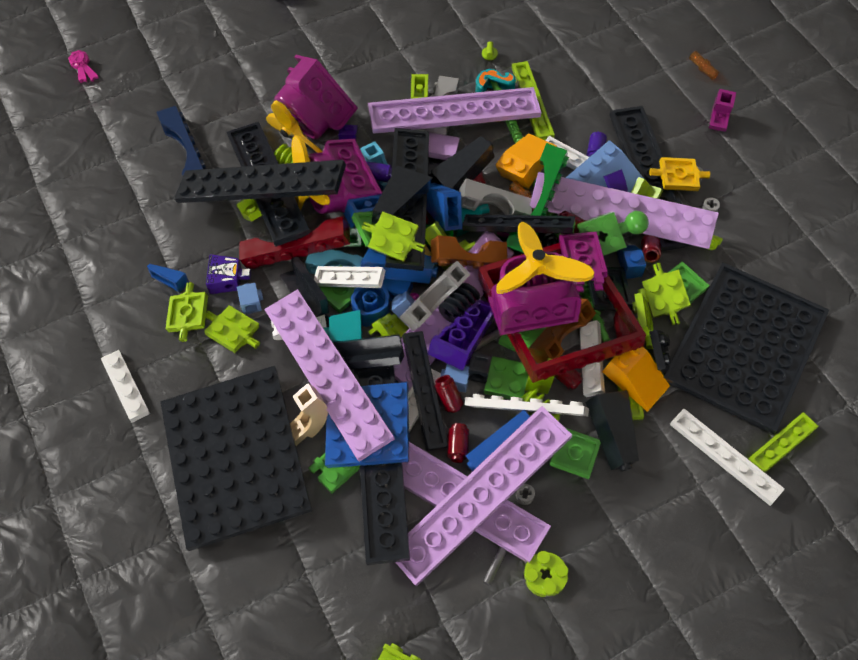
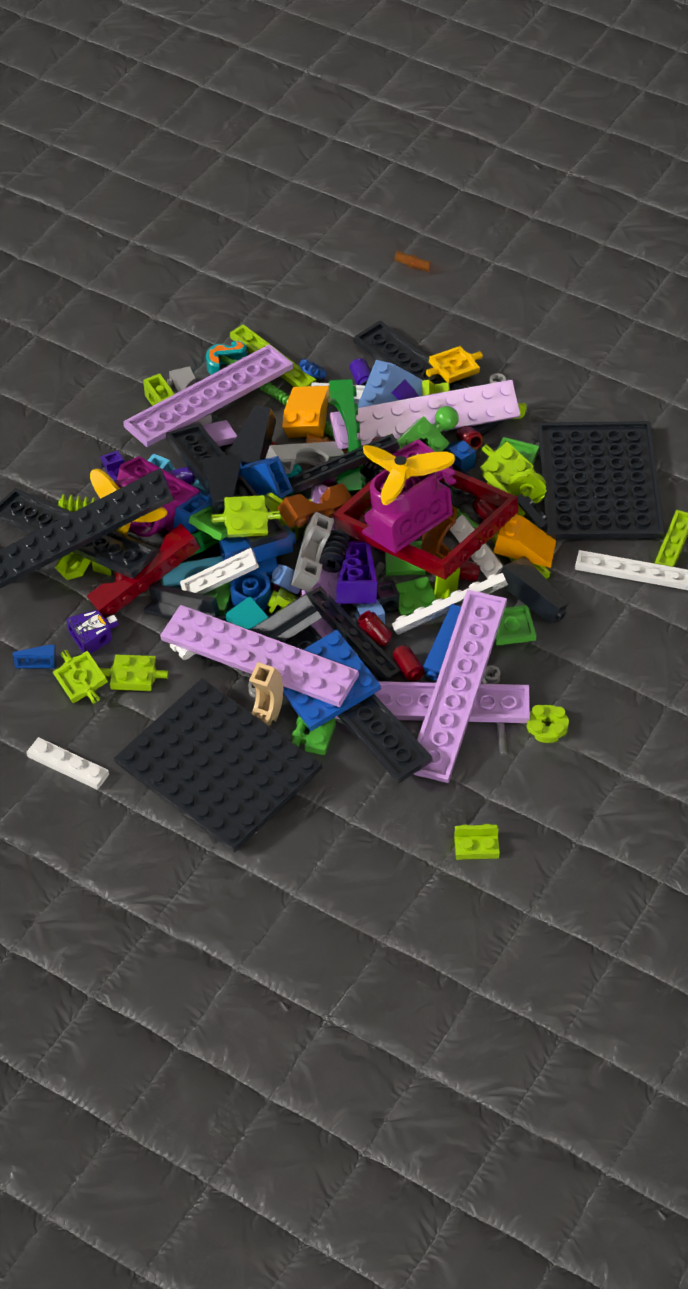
camera: 30 degrees left, 10 degrees down
(250, 298) = (131, 639): medium blue brick -> none
(310, 103) = (65, 445): magenta brick -> none
(489, 52) = (198, 332): lime plate -> none
(557, 124) = (312, 369): none -> blue gear
(672, 322) = (528, 478): none -> lime plate
(721, 110) = (454, 293): magenta brick -> none

